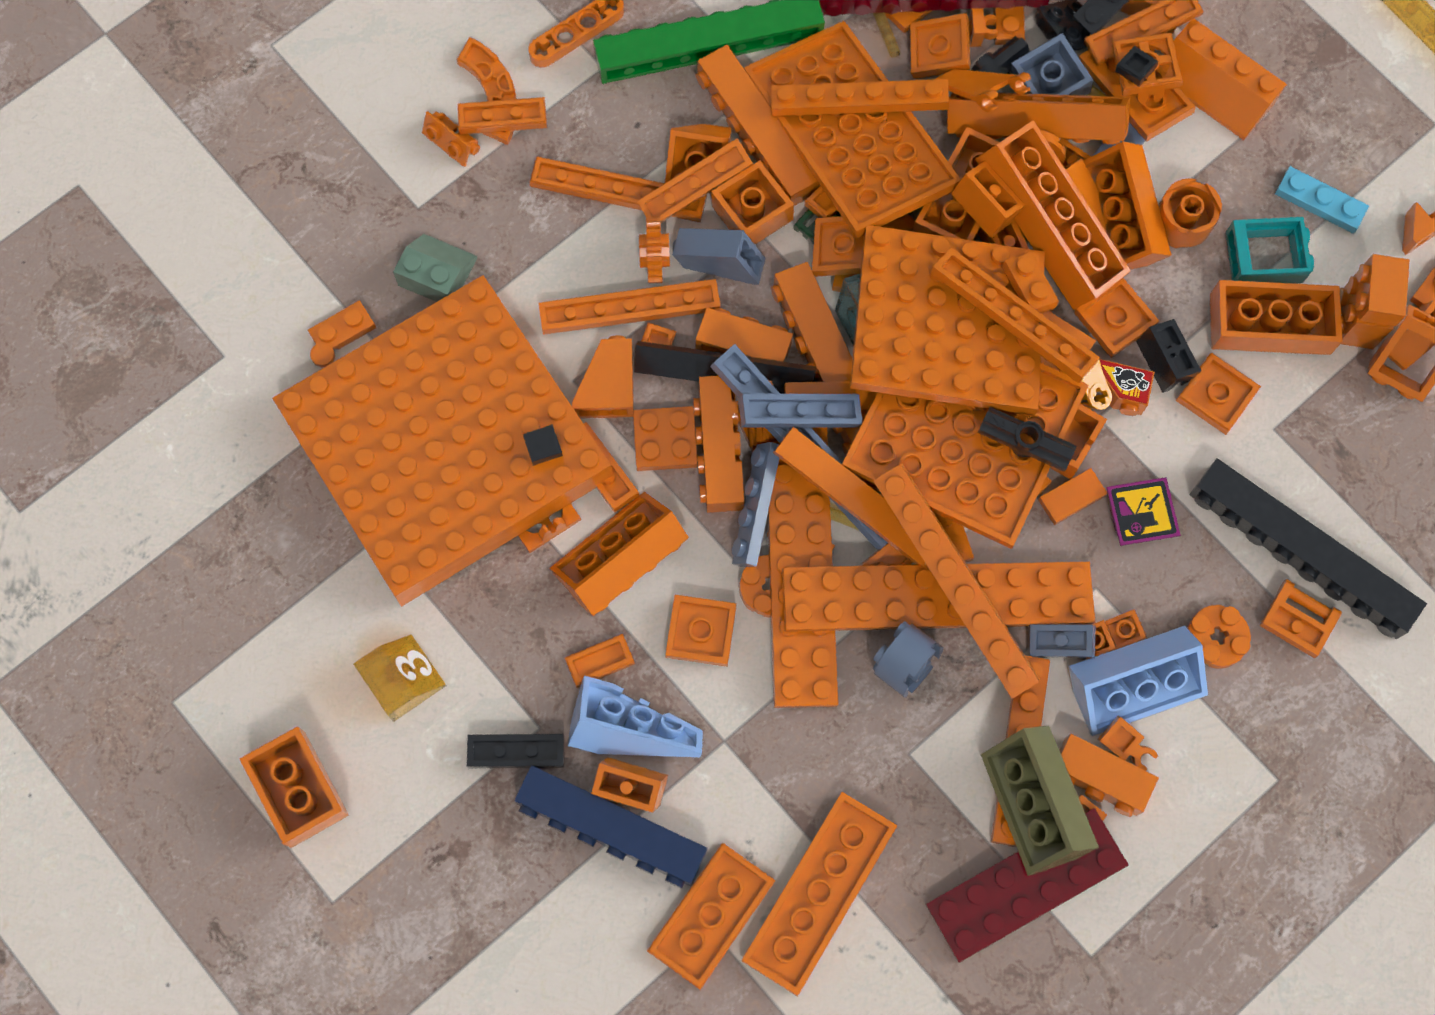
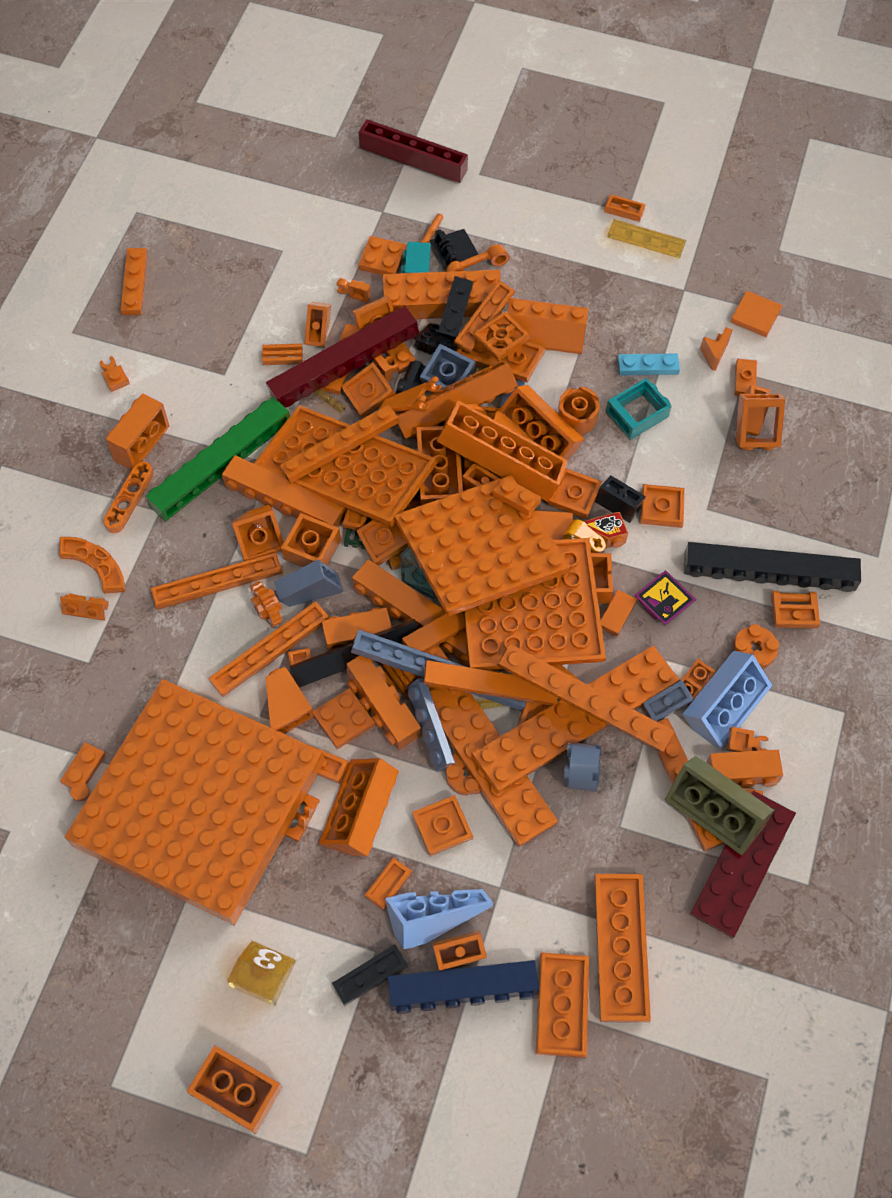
camera: 30 degrees left, 10 degrees down
(433, 268) = (123, 695): sand green slope -> none
(502, 115) = (112, 574): orange tile -> none
(542, 445) = (270, 762): black tile -> none
(696, 182) = (267, 547): orange plate -> none
(800, 410) = (424, 648): sand blue plate -> none
(987, 199) = (458, 461): orange brick -> none
(1015, 315) = (520, 518): orange plate -> none
(1046, 446) = (560, 589): black piece -> none
(1136, 66) = (497, 339): black tile -> none
(1275, 317) = (667, 443): orange brick -> none
(1374, 301) = (718, 403): orange piece -> none

